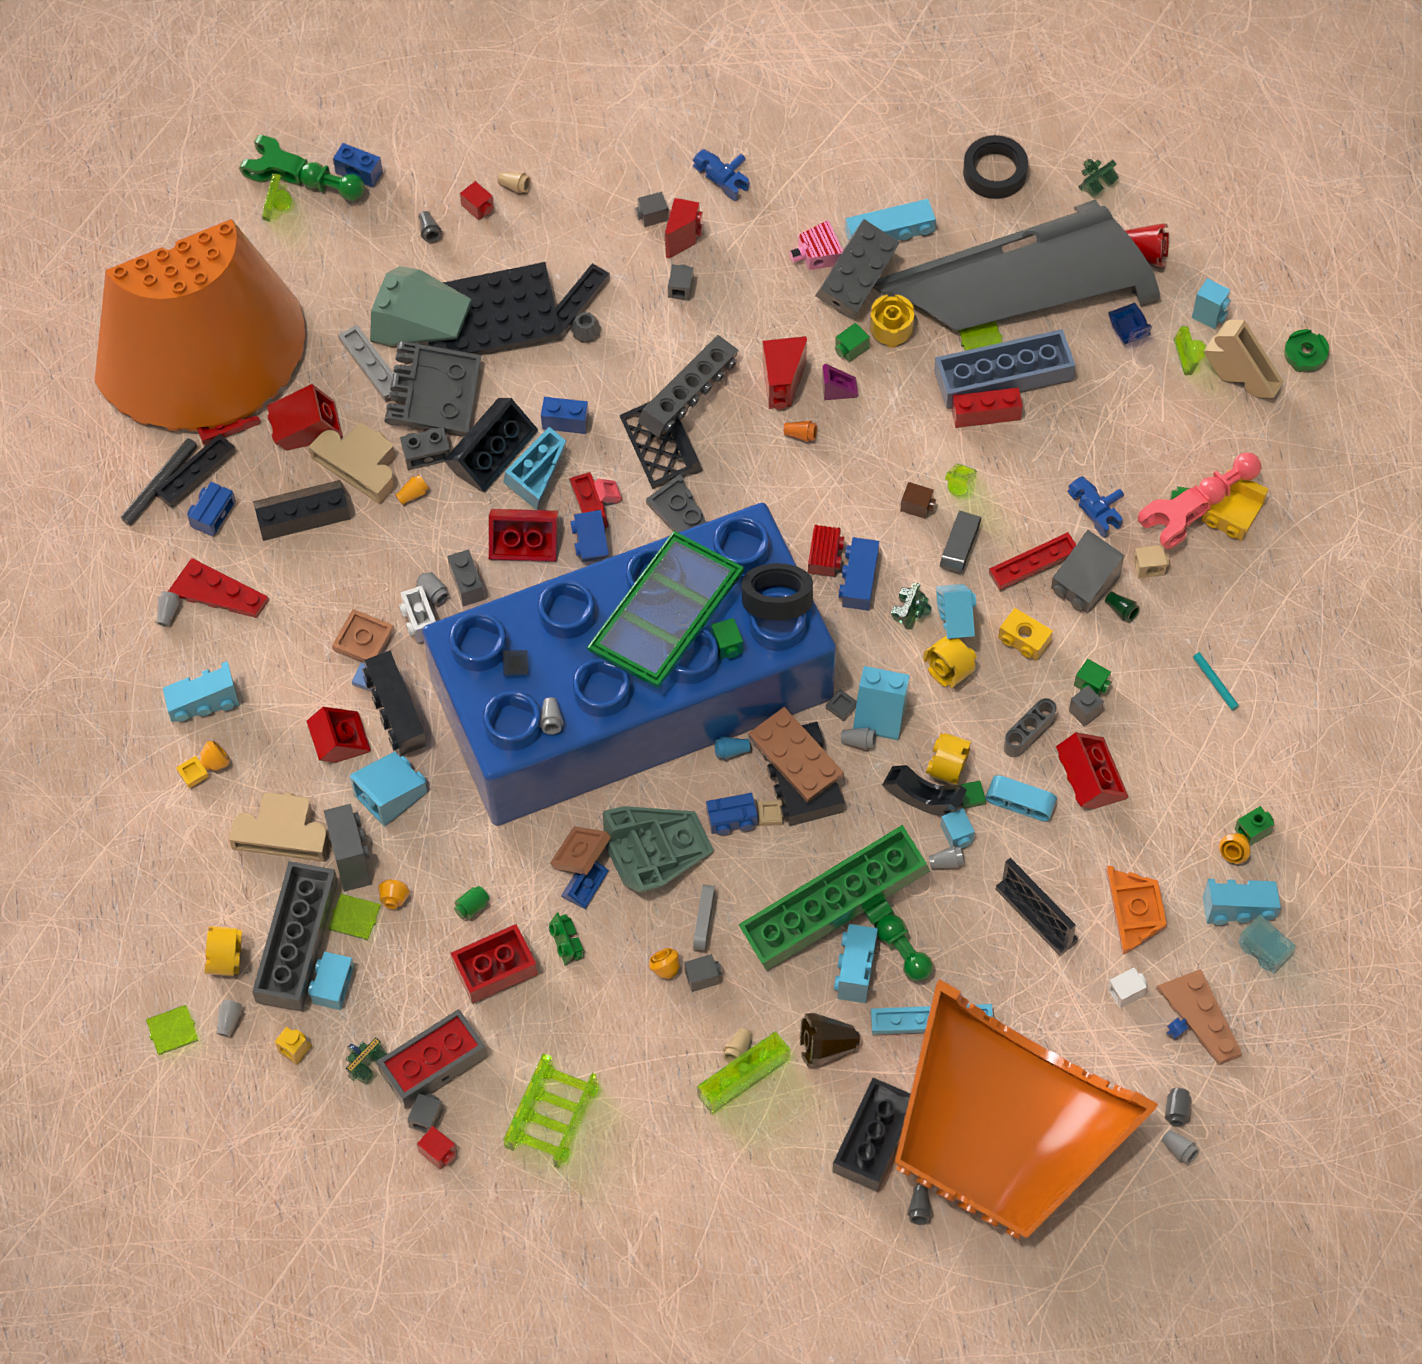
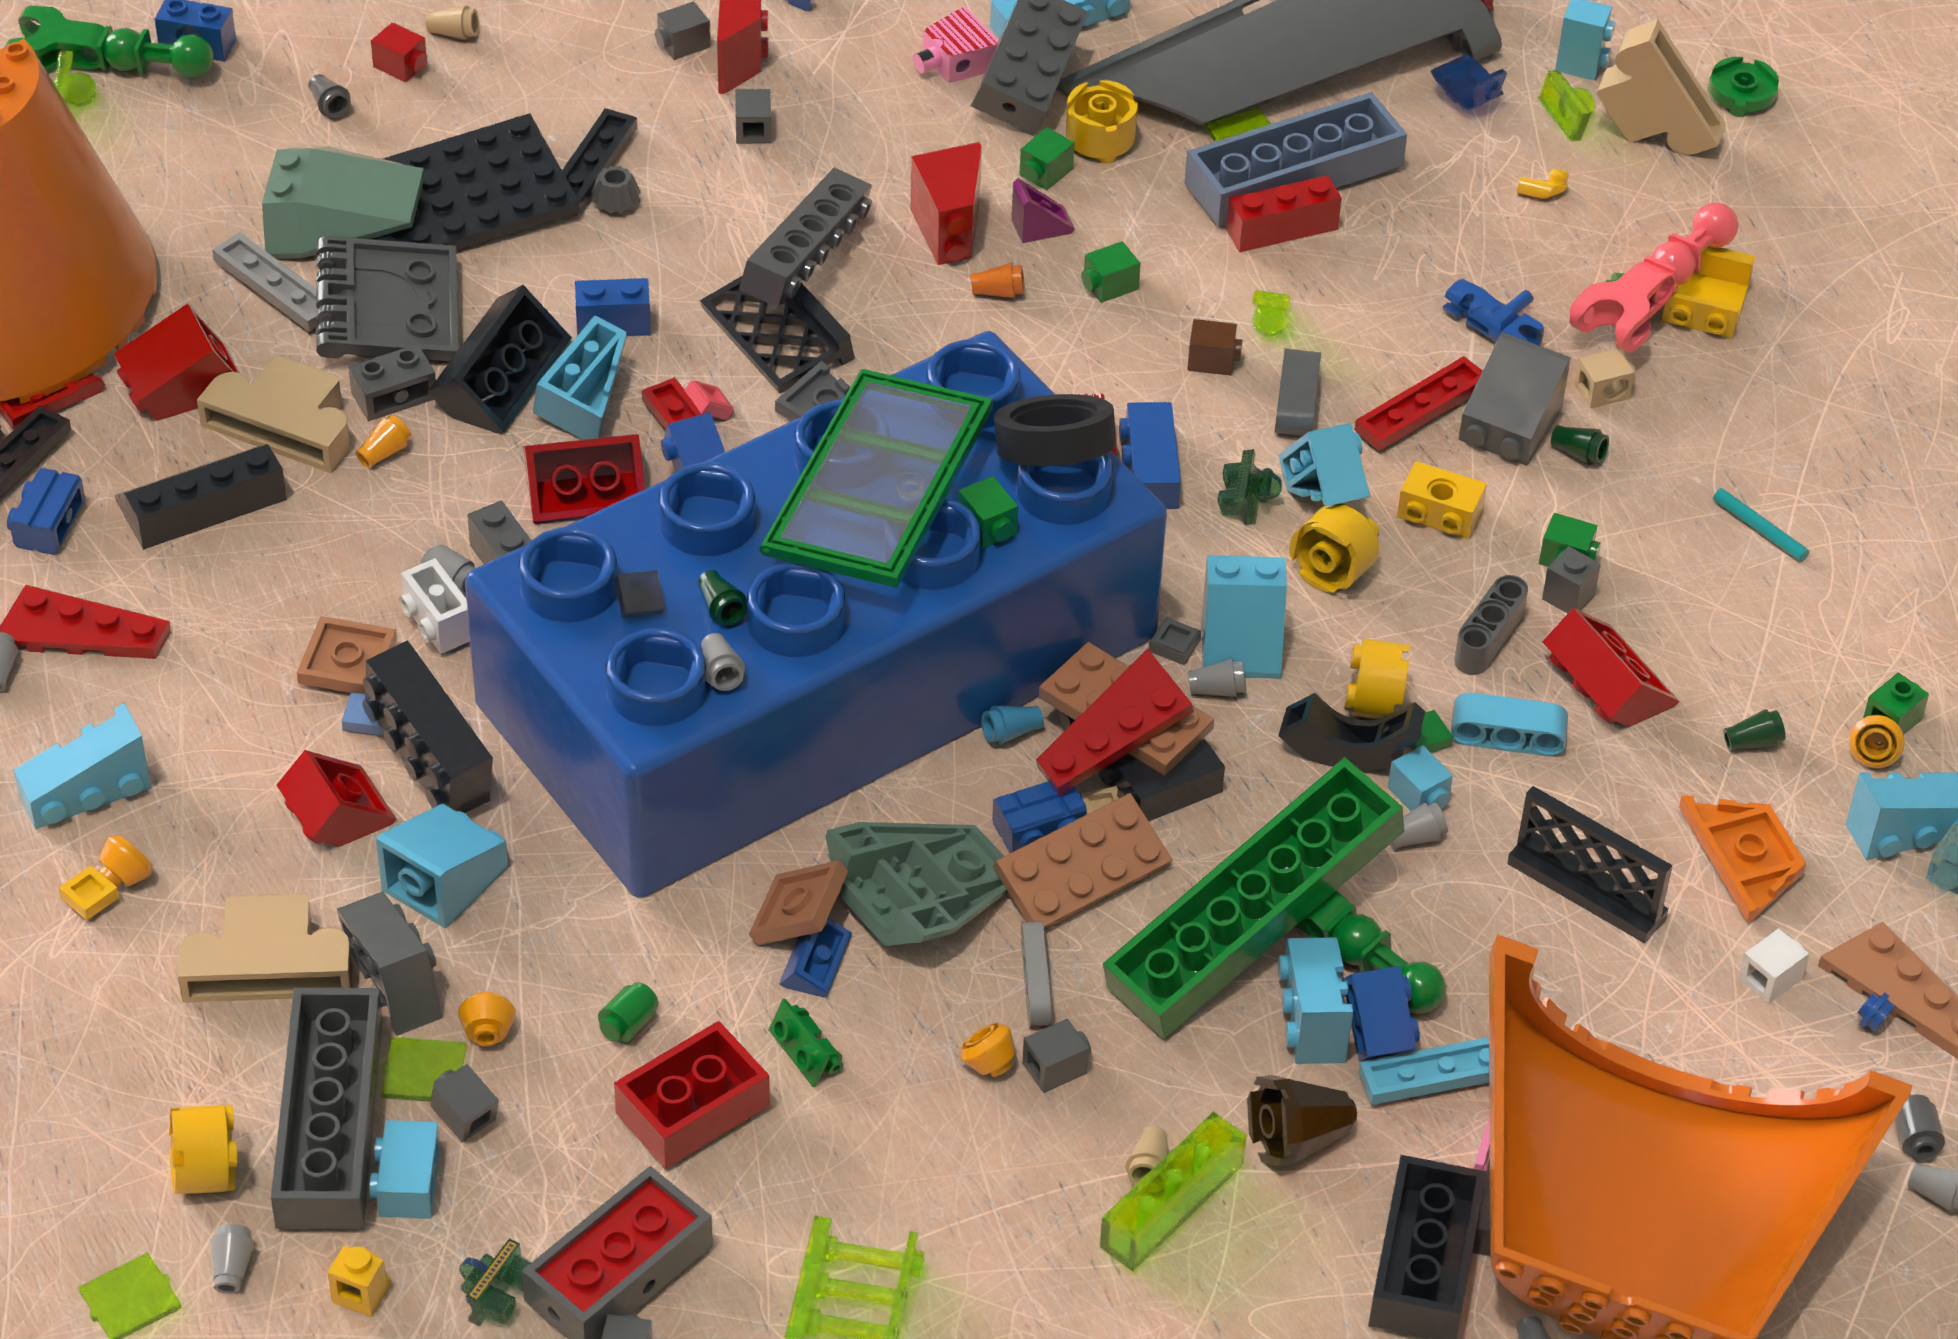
camera: 15 degrees left, 15 degrees down
(369, 944) = (463, 1102): none -> dark grey brick
(561, 674) = (723, 600): none -> dark green cone
(748, 850) = (1083, 862): none -> nougat plate
(788, 766) = (1118, 721): none -> red wing
(869, 434) = (1111, 272): none -> green brick
(889, 982) = (1381, 1013): none -> blue brick
(1157, 411) = (1544, 189): none -> yellow arm
(1166, 828) = (1757, 731): none -> dark green cone

